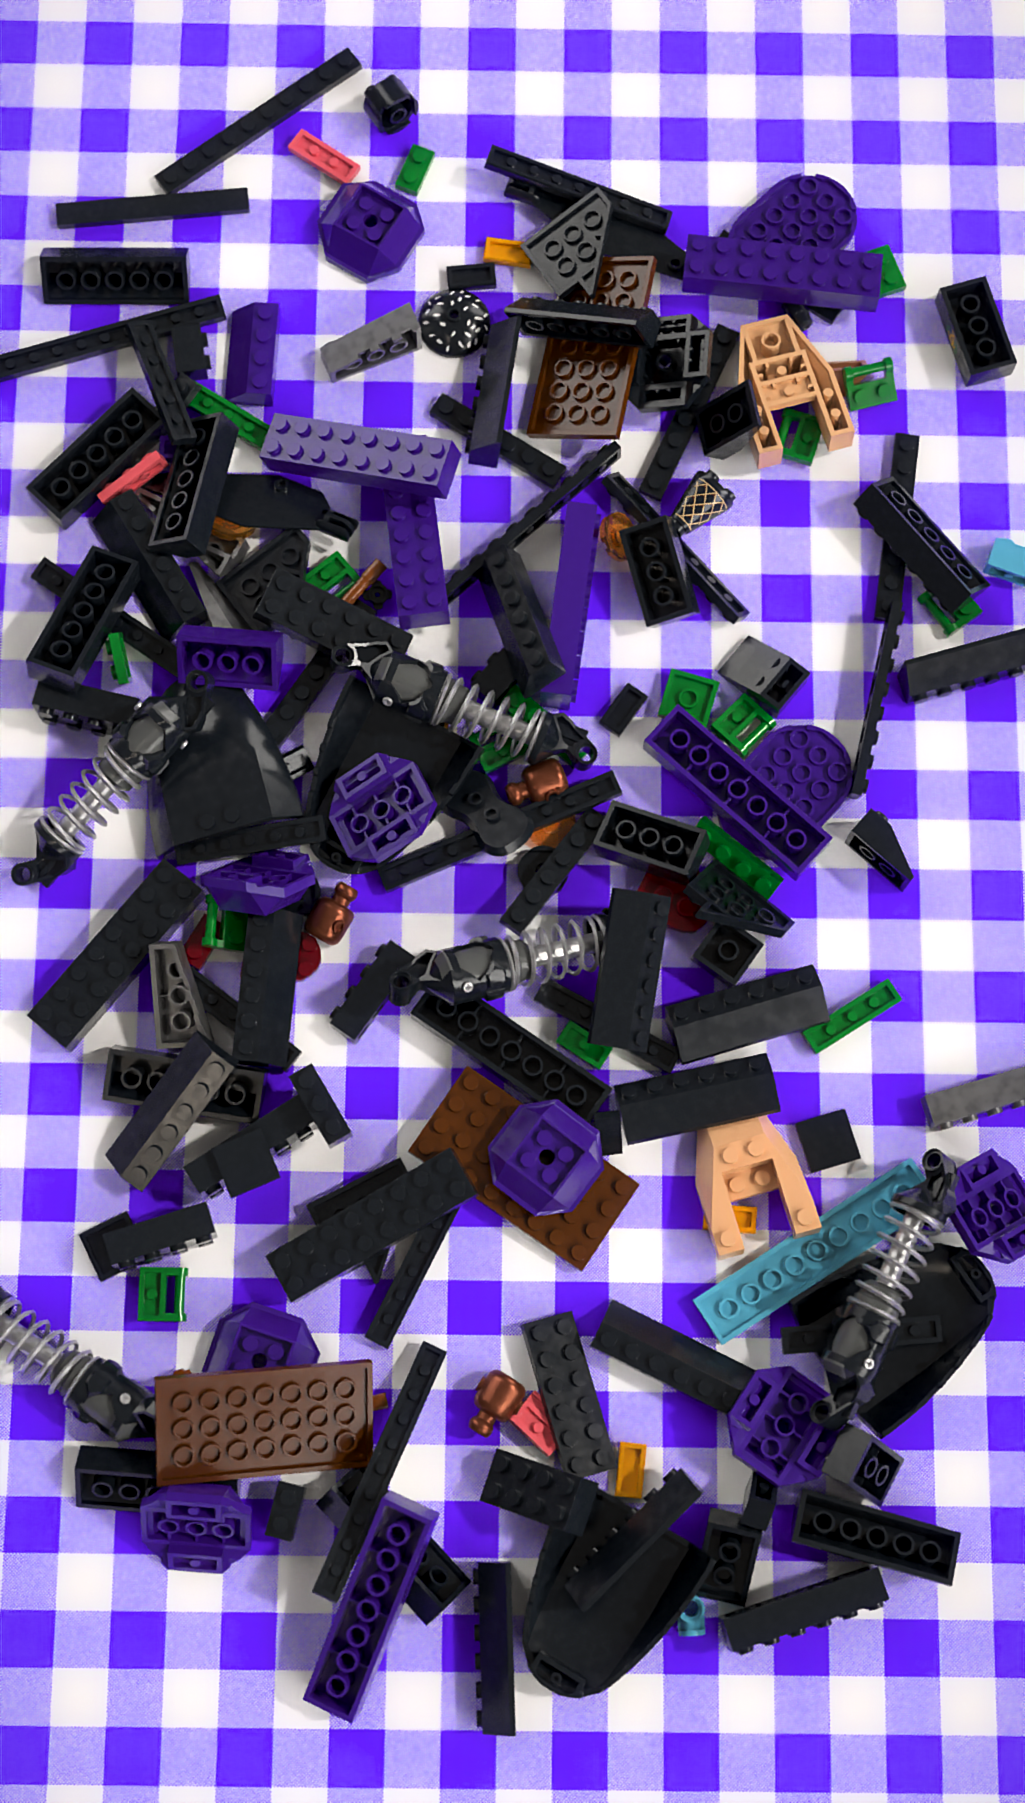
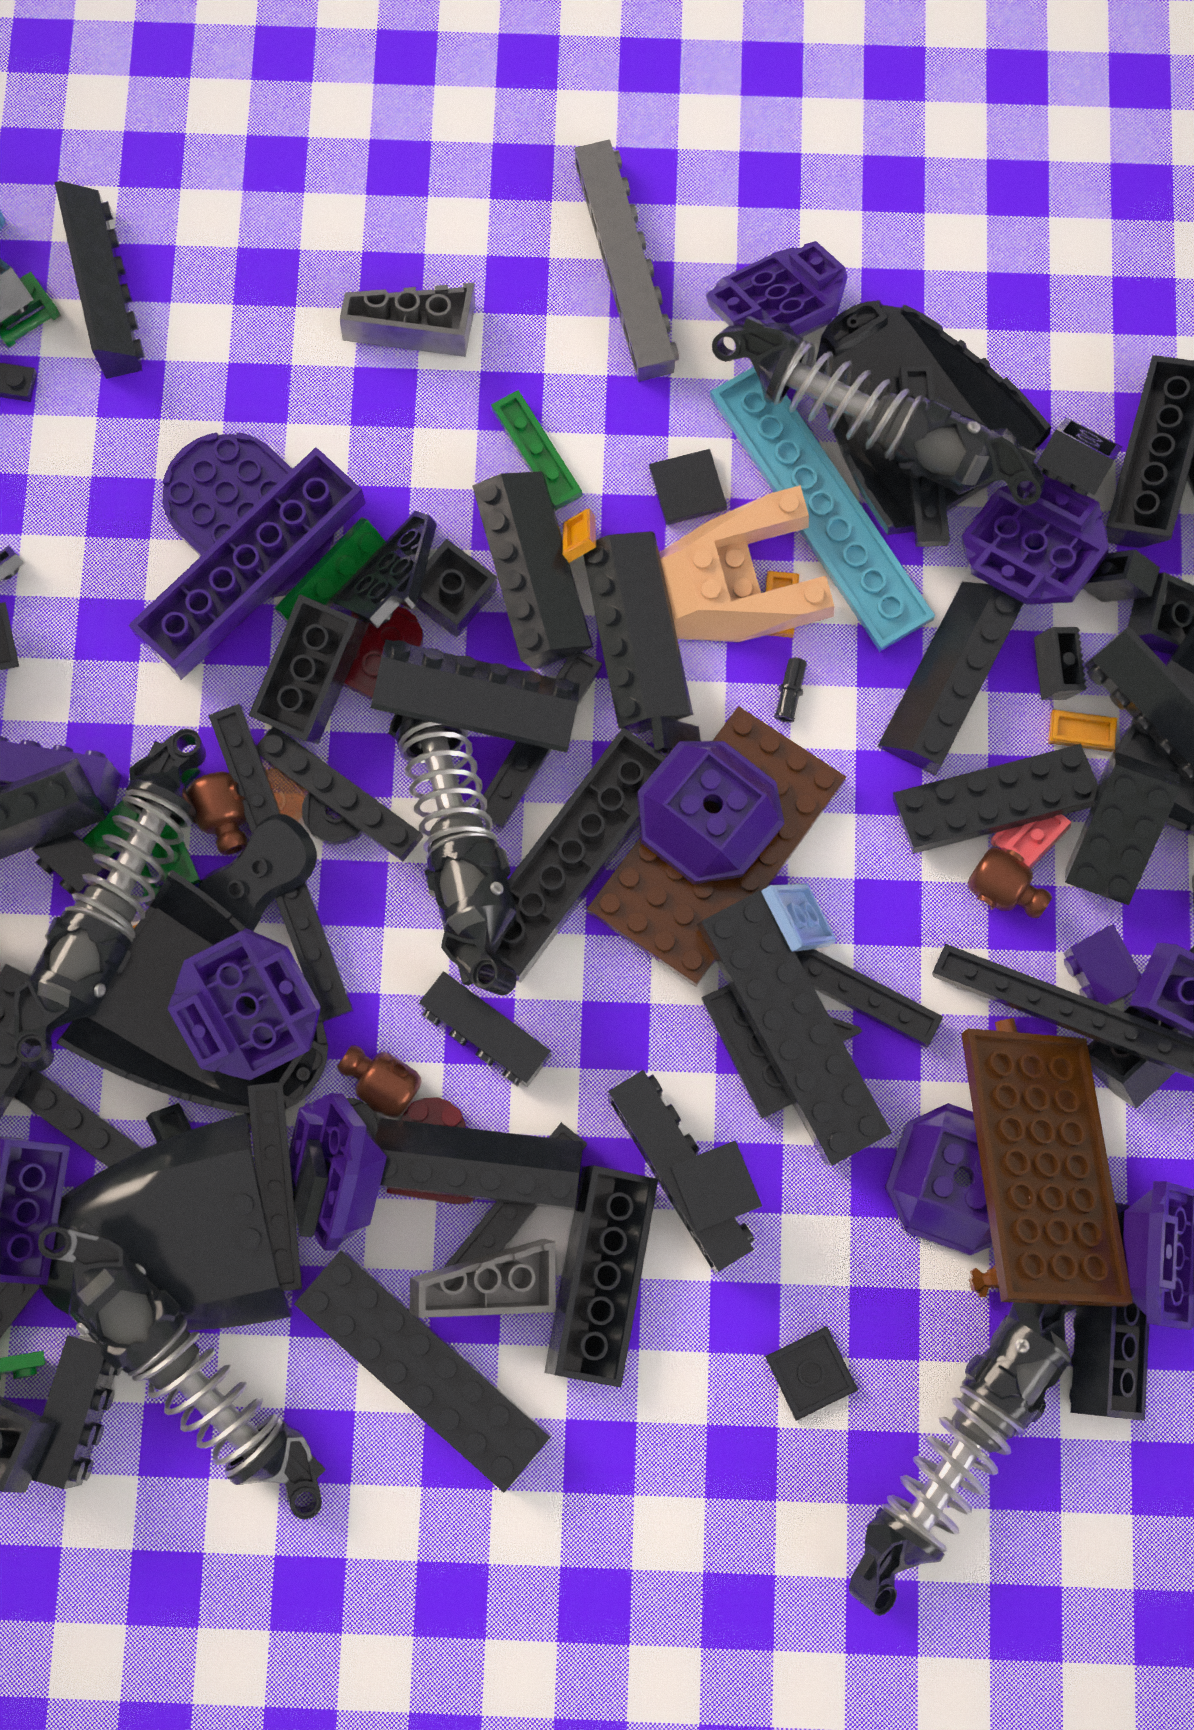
camera: 85 degrees left, 0 degrees up
(154, 1294) = (874, 1318): green plate -> none
(160, 1236) = (804, 1305): black brick -> none
(170, 1110) = (640, 1290): black slope -> none
(197, 954) = (405, 1253): dark red plate -> none
(232, 929) = (395, 1214): green plate -> none
(245, 863) = (310, 1188): none -> black tile
(285, 1510) = (1145, 1146): black brick -> none
(320, 1106) = (645, 1085): black brick -> none
(427, 1477) = (1103, 967): none -> dark purple slope
(461, 1229) = (799, 916): none -> light blue tile
(574, 1040) = (562, 769): green plate -> none
(623, 710) = (126, 706): black tile -> none
(655, 1227) = (790, 690): none -> black axle
(683, 1448) = (1060, 663): none -> black brick
(691, 692) = (108, 621): green plate -> none
(736, 719) = (148, 564): green plate -> none
(765, 675) = (94, 528): black slope -> none
(775, 1051) = (579, 535): none -> light orange tile
(878, 690) = (132, 397): black plate -> none
(878, 845) = (329, 399): black slope -> none
(958, 915) = (411, 319): none -> flat silver wedge

